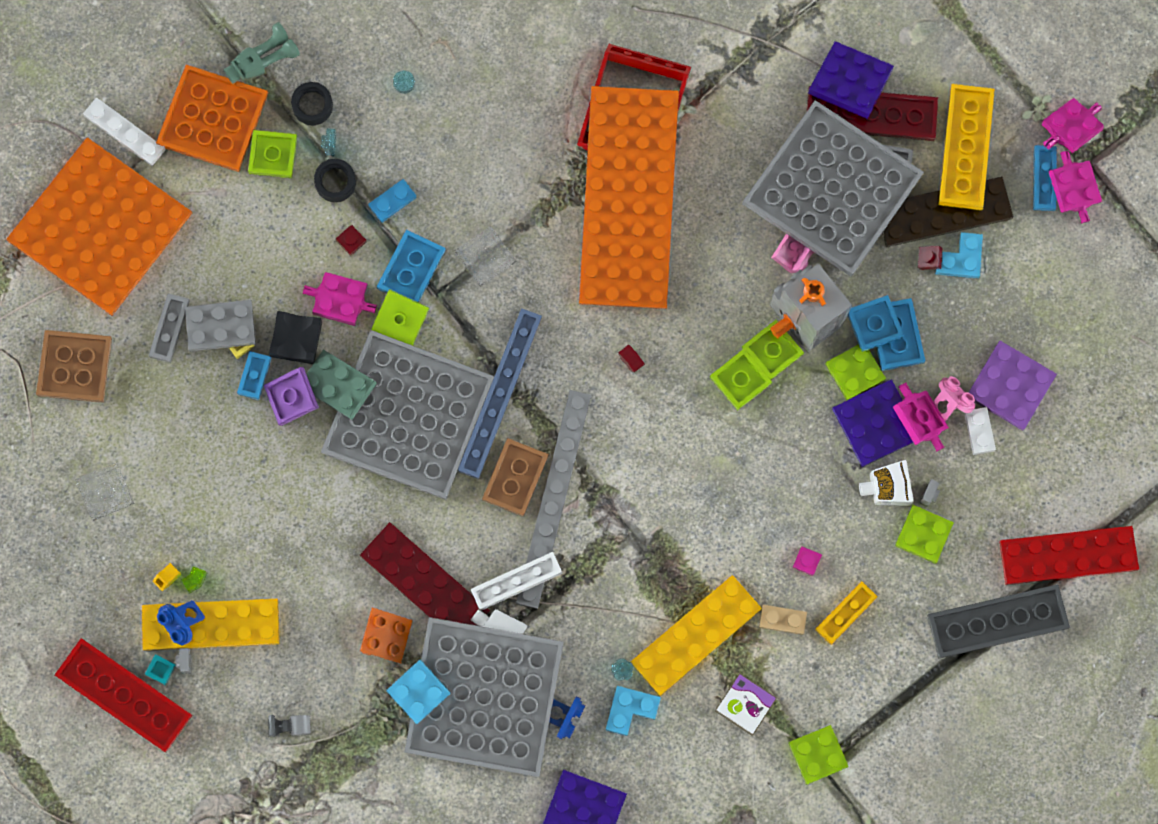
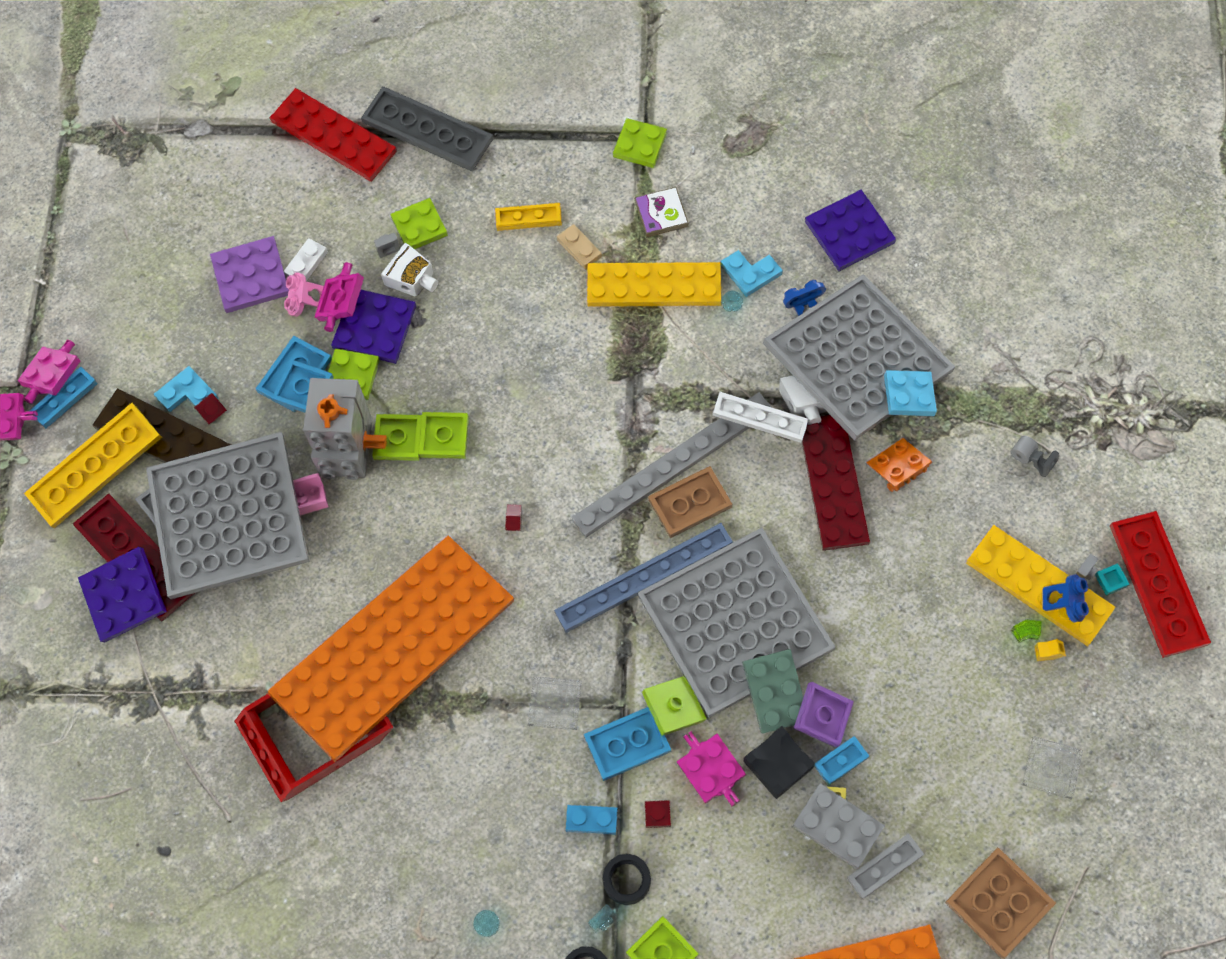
camera: 130 degrees left, 10 degrees down
(807, 561) = (522, 271): dark pink plate -> none

